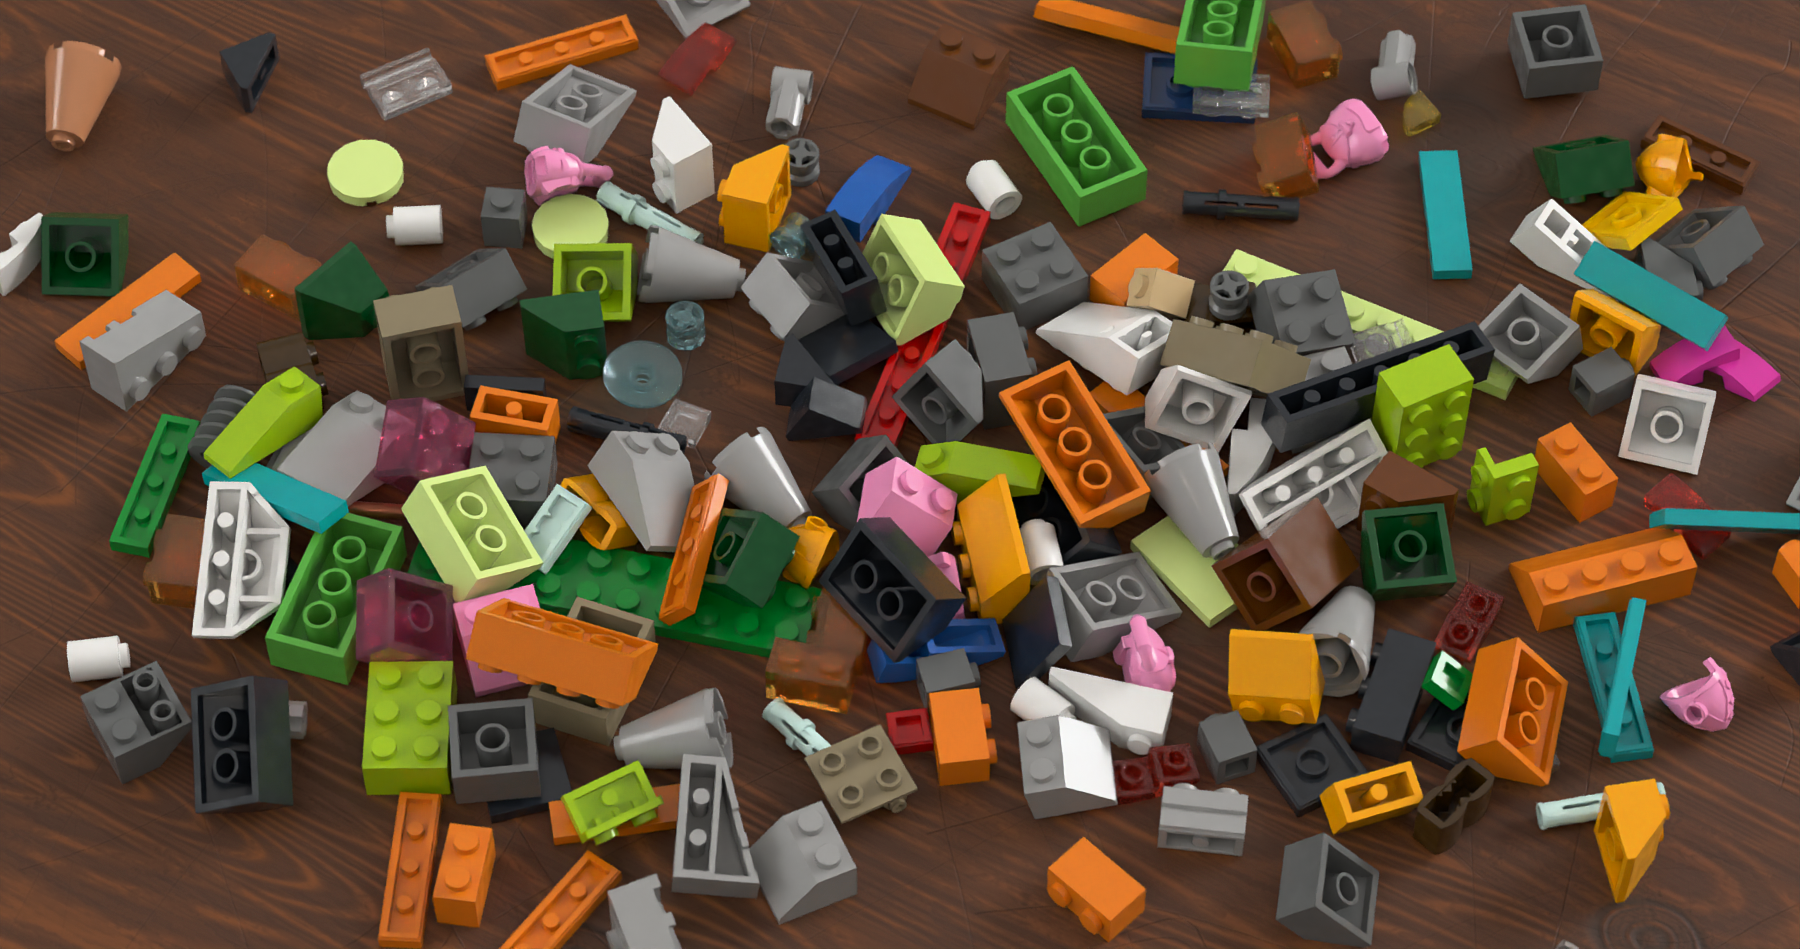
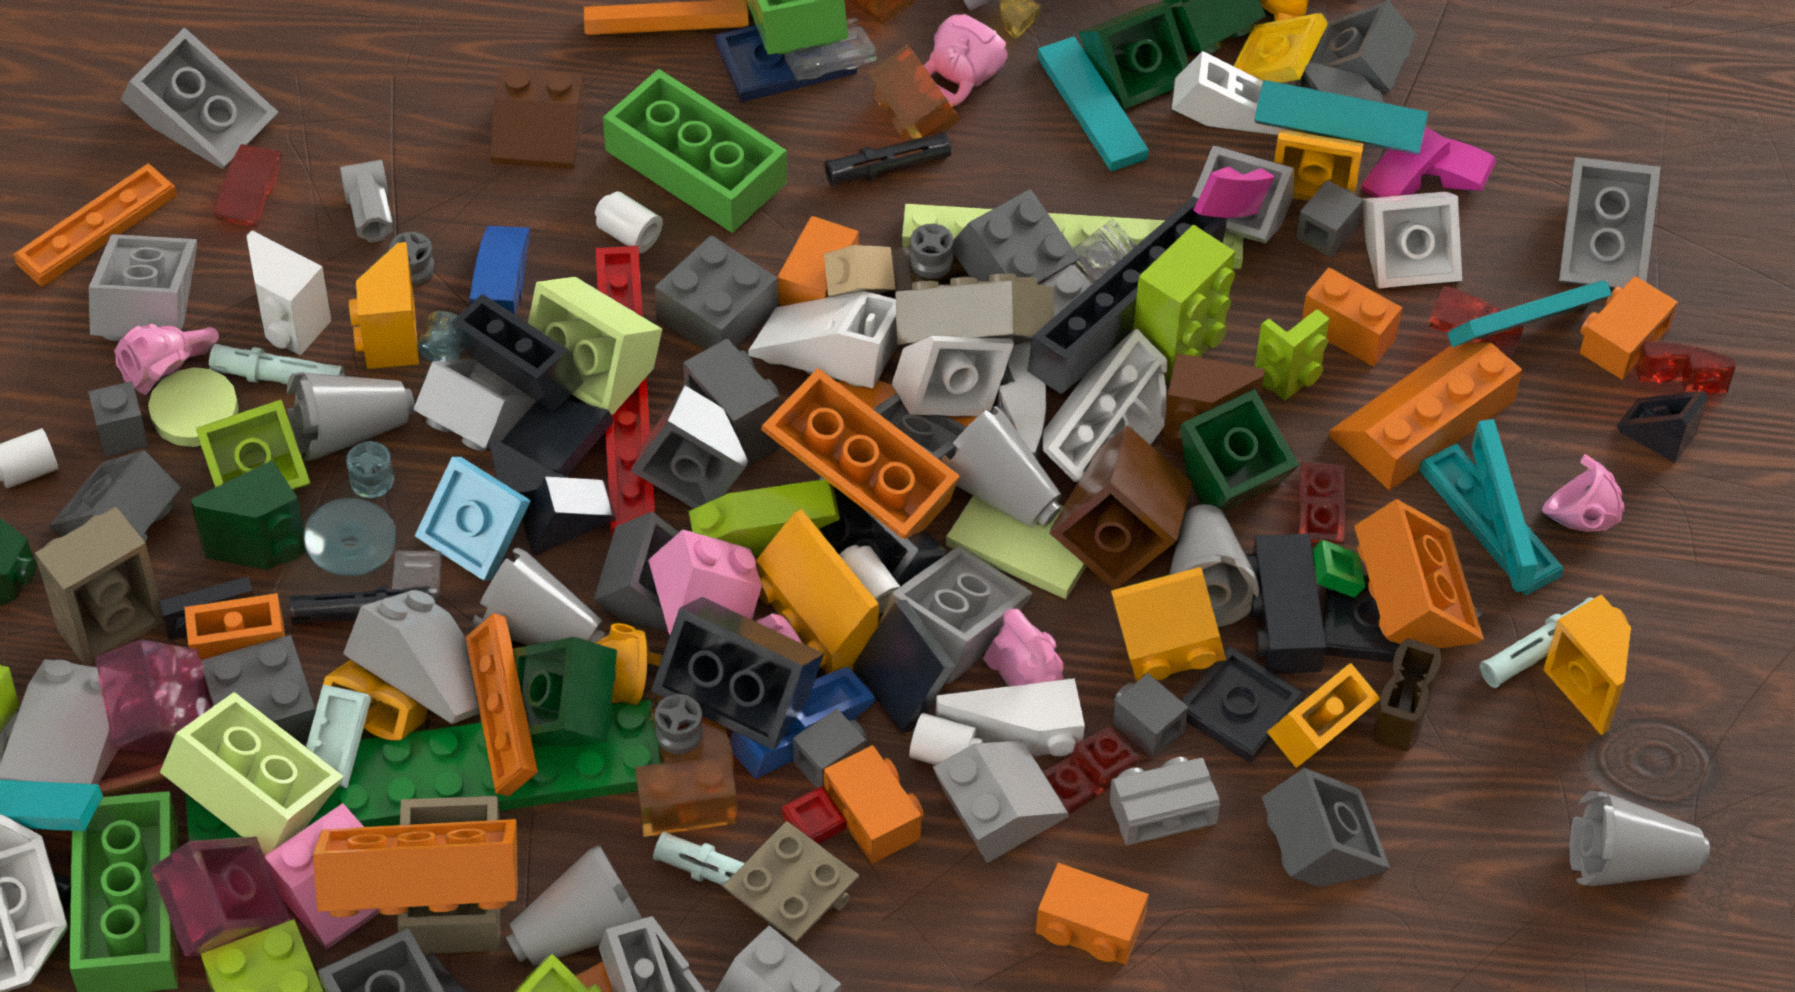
camera: 25 degrees left, 0 degrees up
(744, 390) = (472, 518): none -> medium azure plate
(823, 604) = (671, 714): none -> dark grey wheel
(1502, 183) = (1137, 53): none -> dark green slope
(1505, 330) = (1233, 194): none -> dark pink slope

